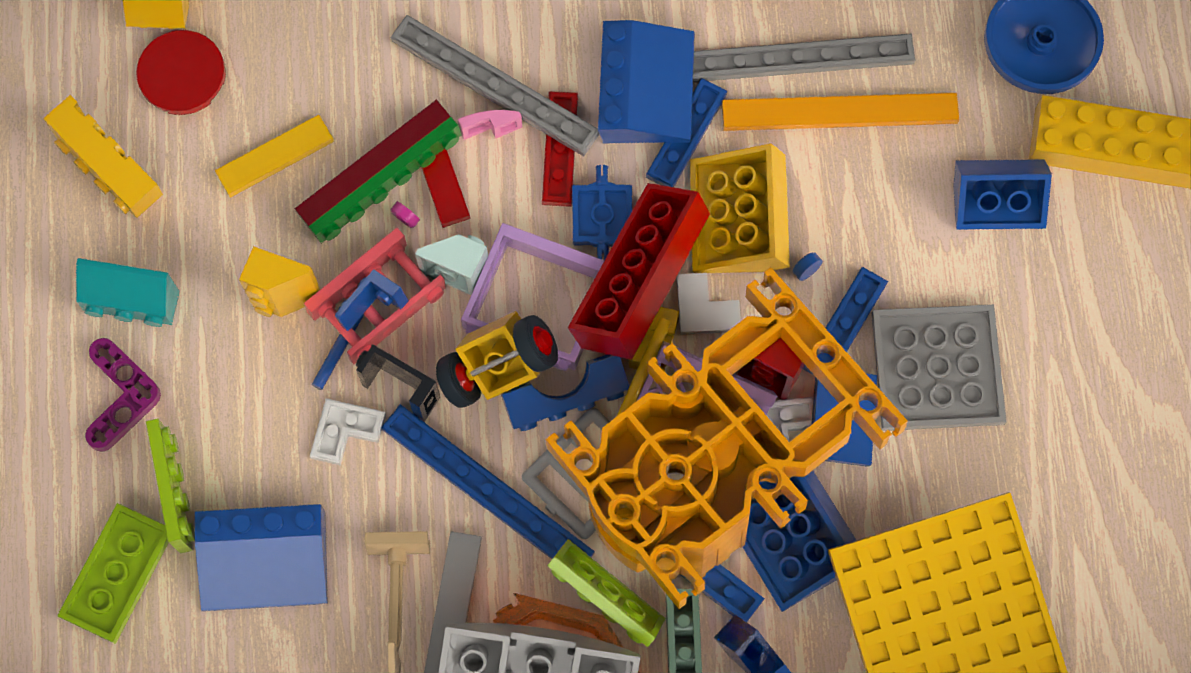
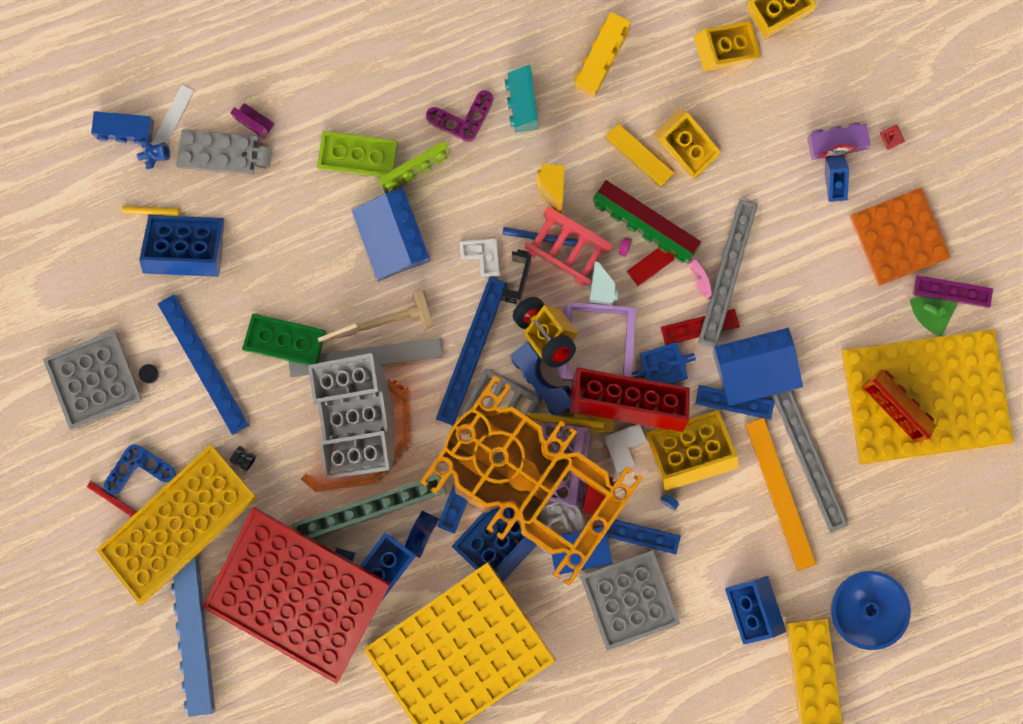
camera: 80 degrees right, 10 degrees up
(181, 72) = (675, 80): red tile -> none
(280, 83) = (687, 143): none -> yellow slope
(369, 289) = (567, 241): blue bracket -> none
(608, 593) = (427, 439): lime plate -> none

